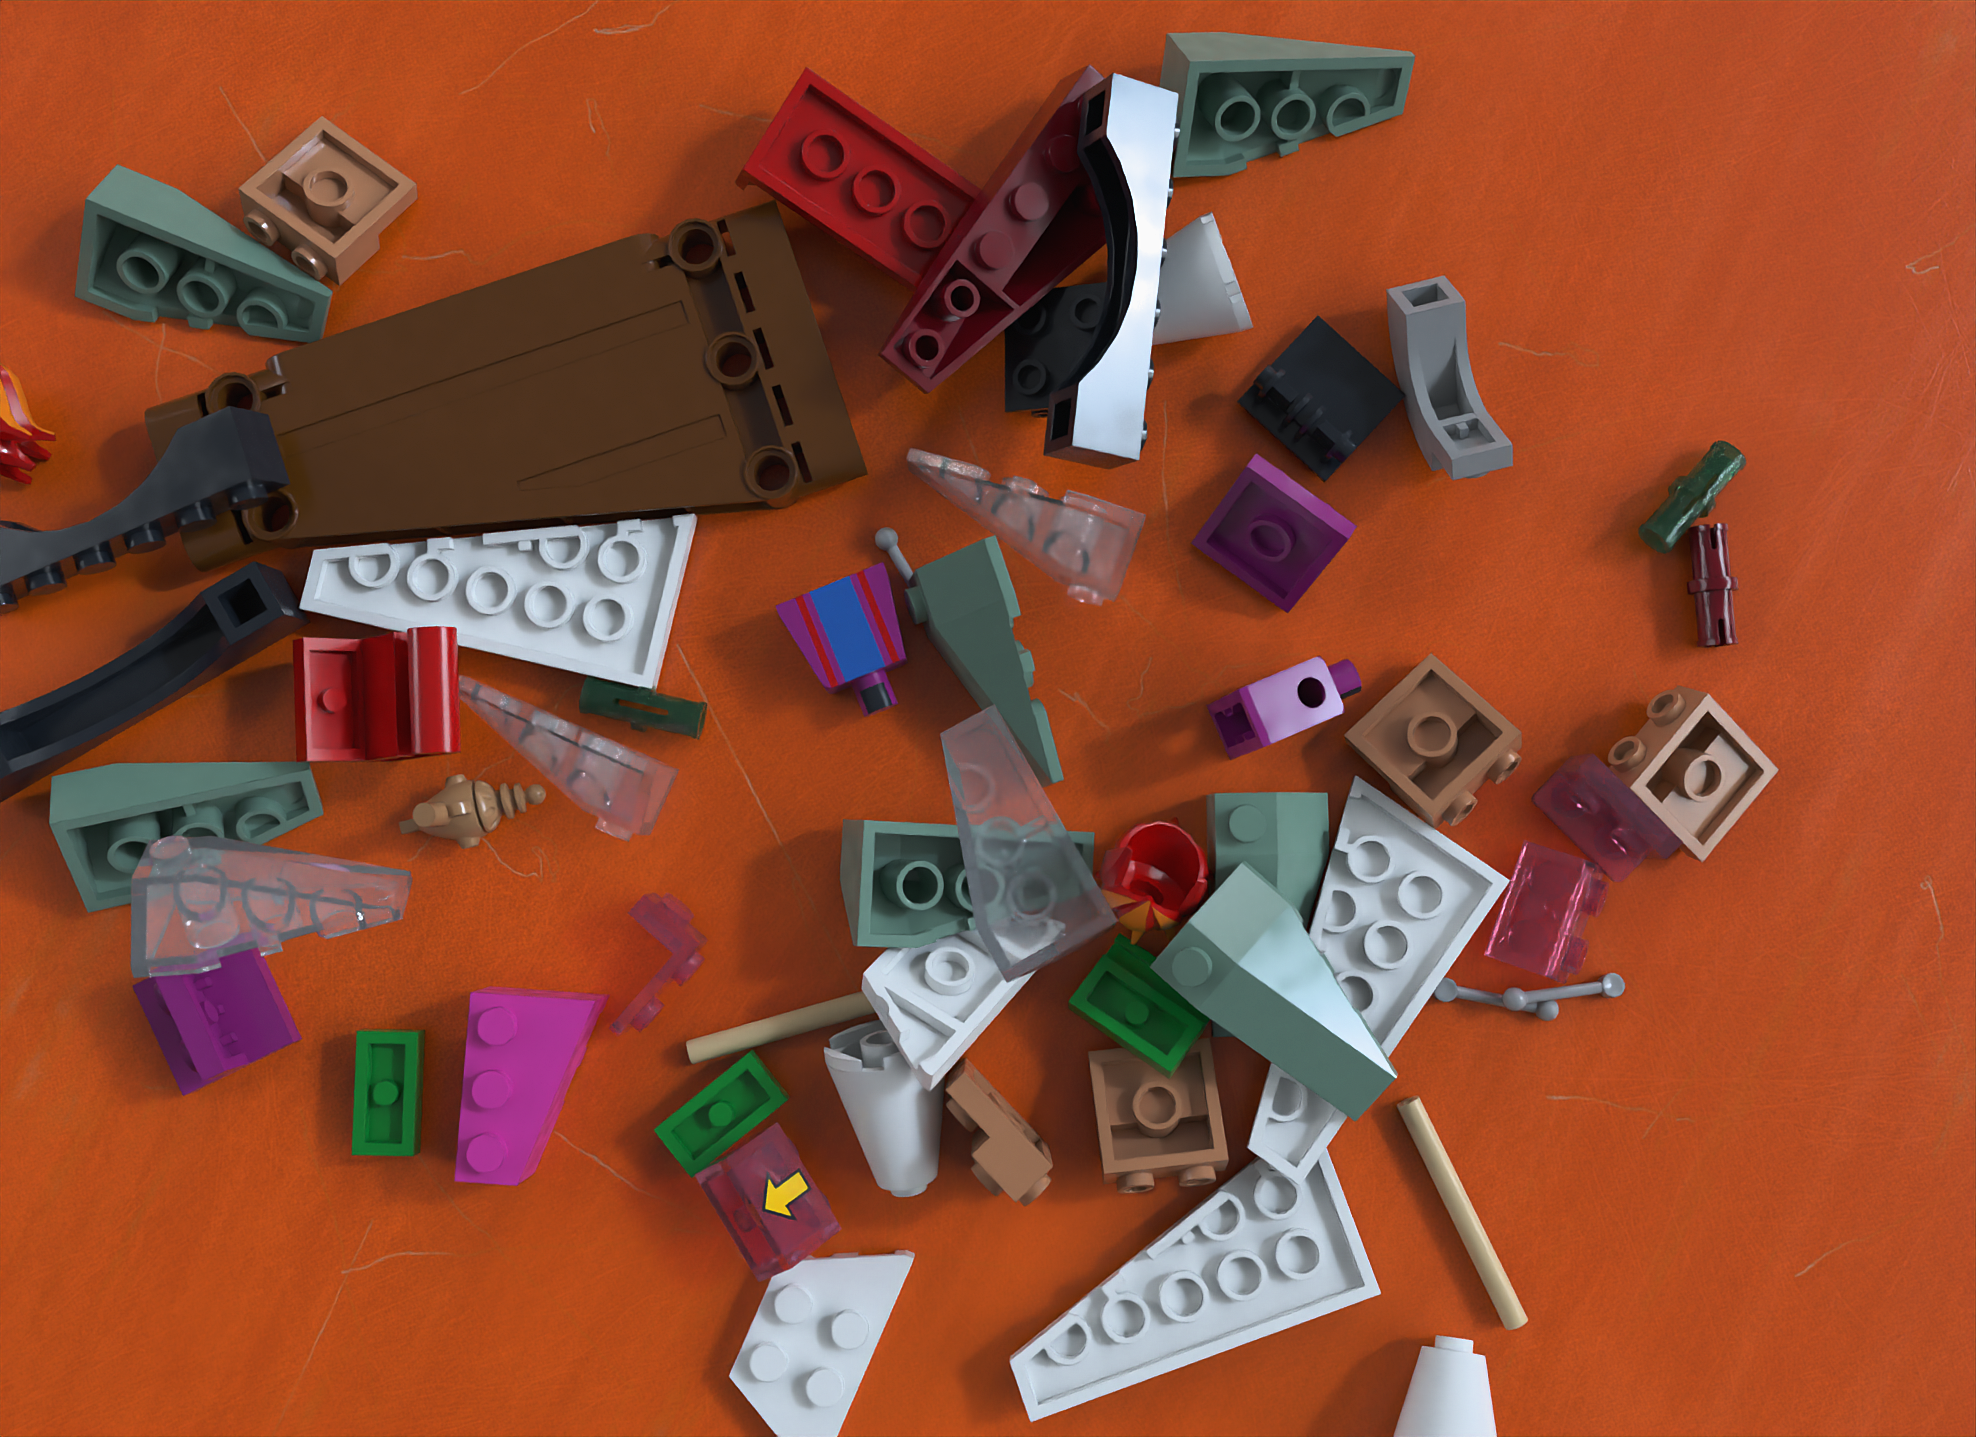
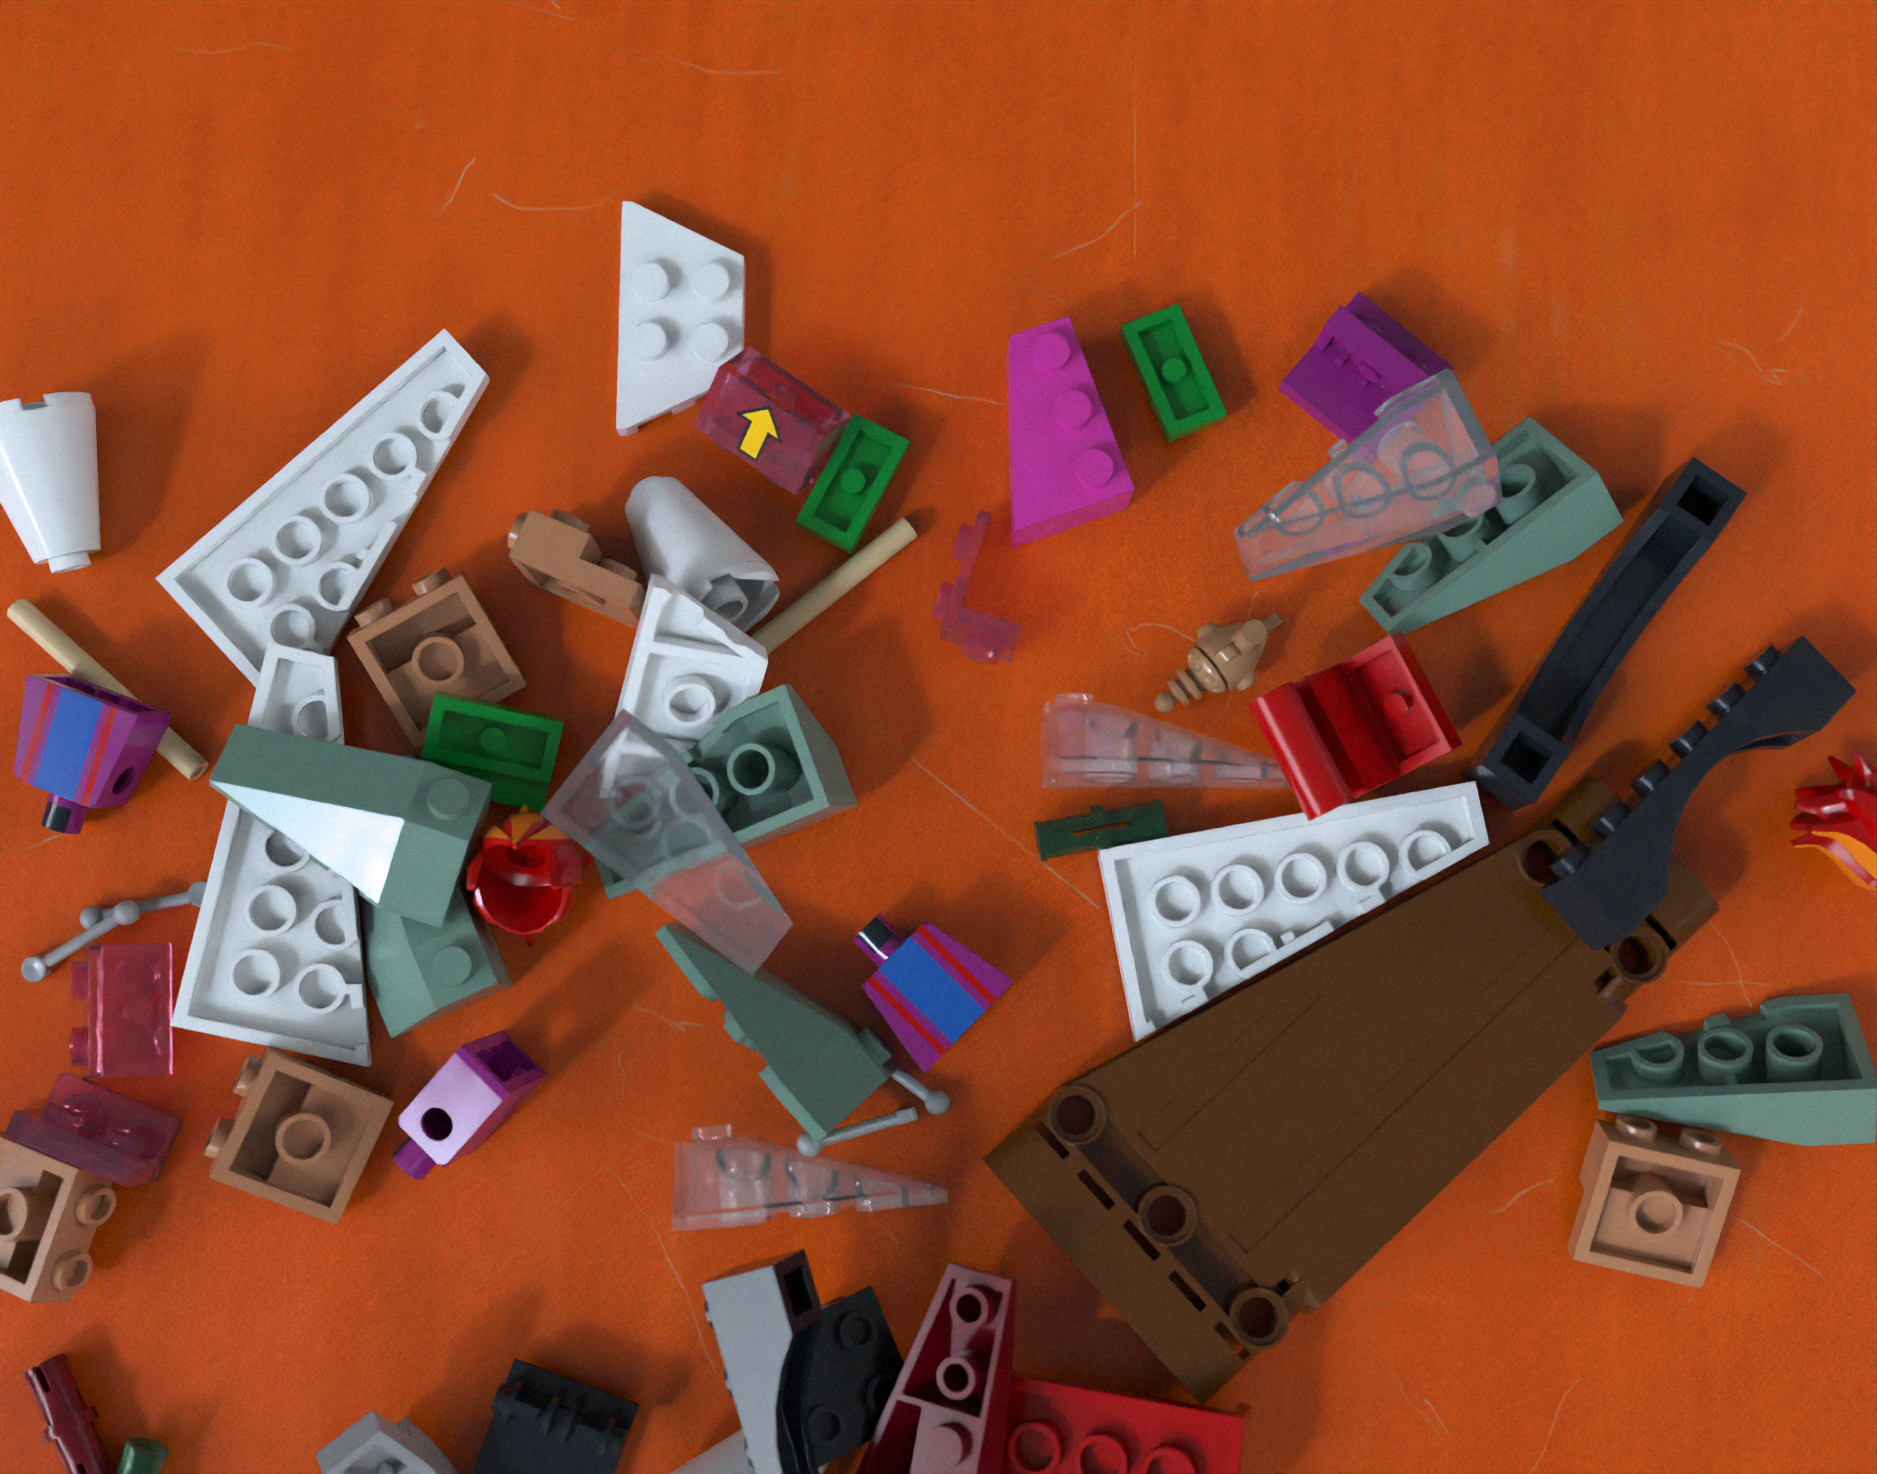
camera: 150 degrees right, 5 degrees down
(923, 540) = (809, 1147): none -> light grey hinge
(1273, 533) = (543, 1279): magenta bracket -> none
(1499, 1164) = (83, 746): none -> magenta torso

